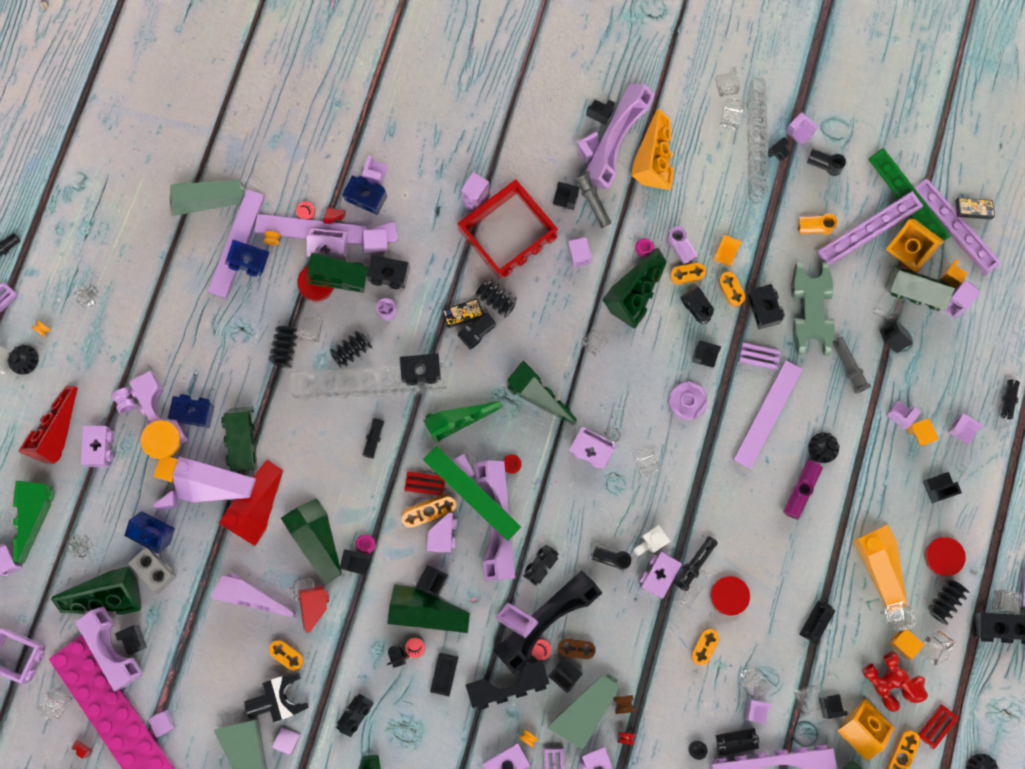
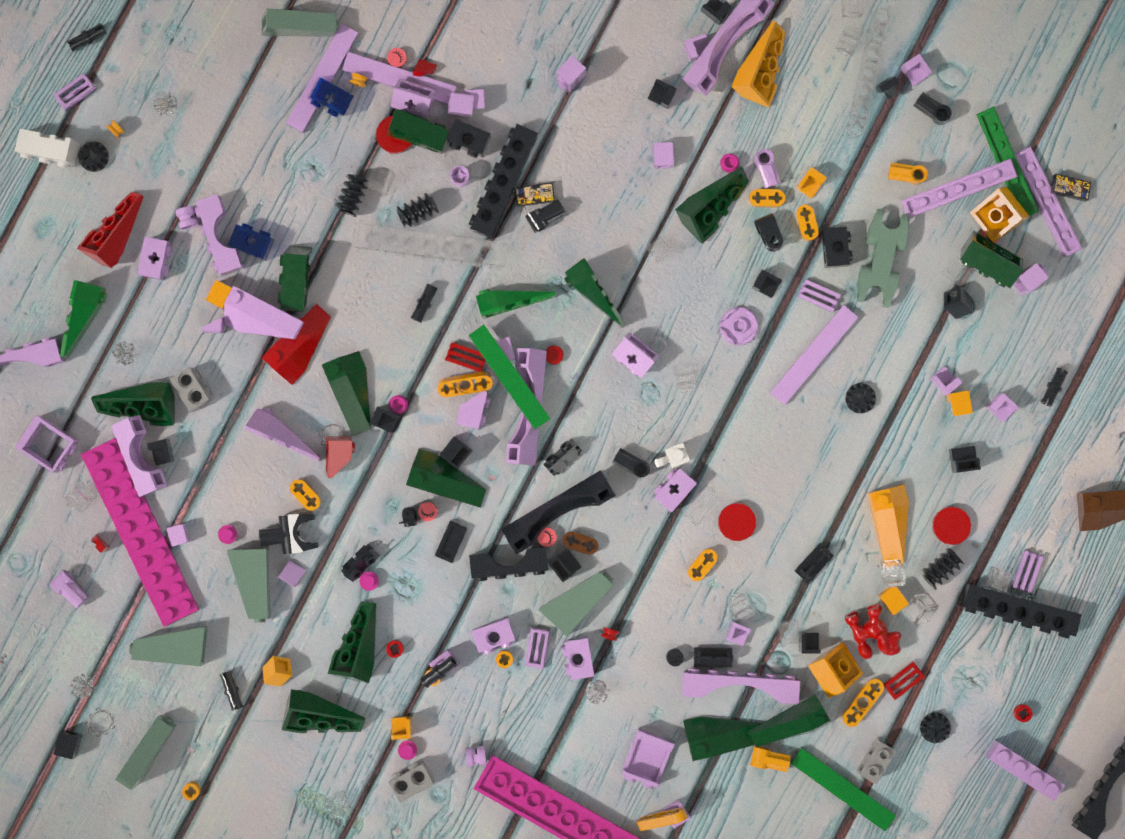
camera: 15 degrees right, 10 degrees up
(149, 532) = (193, 353): clear blue brick -> none
(160, 439) = (218, 265): light orange tile -> none
(212, 712) = (227, 534): none -> dark pink plate
(367, 732) = (369, 581): none -> dark pink plate
(372, 202) = (466, 62): clear blue brick -> none
(374, 171) = (473, 29): lavender panel -> none
(409, 364) = (472, 239): black brick -> none
(440, 259) = (527, 138): none -> black brick
(490, 206) = (584, 89): red window -> none
(496, 298) = (571, 186): black piece -> none
(516, 620) = (529, 505): lavender tile -> none
(528, 738) = (518, 615): light orange bush -> none
(590, 192) = (686, 96): dark grey pin -> none
(624, 704) = (614, 602): reddish brown wheel -> none
(693, 571) = (703, 490): black pin -> none
(798, 500) = (838, 426): magenta piece -> none
(854, 373) = (907, 332): dark grey pin -> none
(954, 275) = (1031, 252): light orange panel -> none

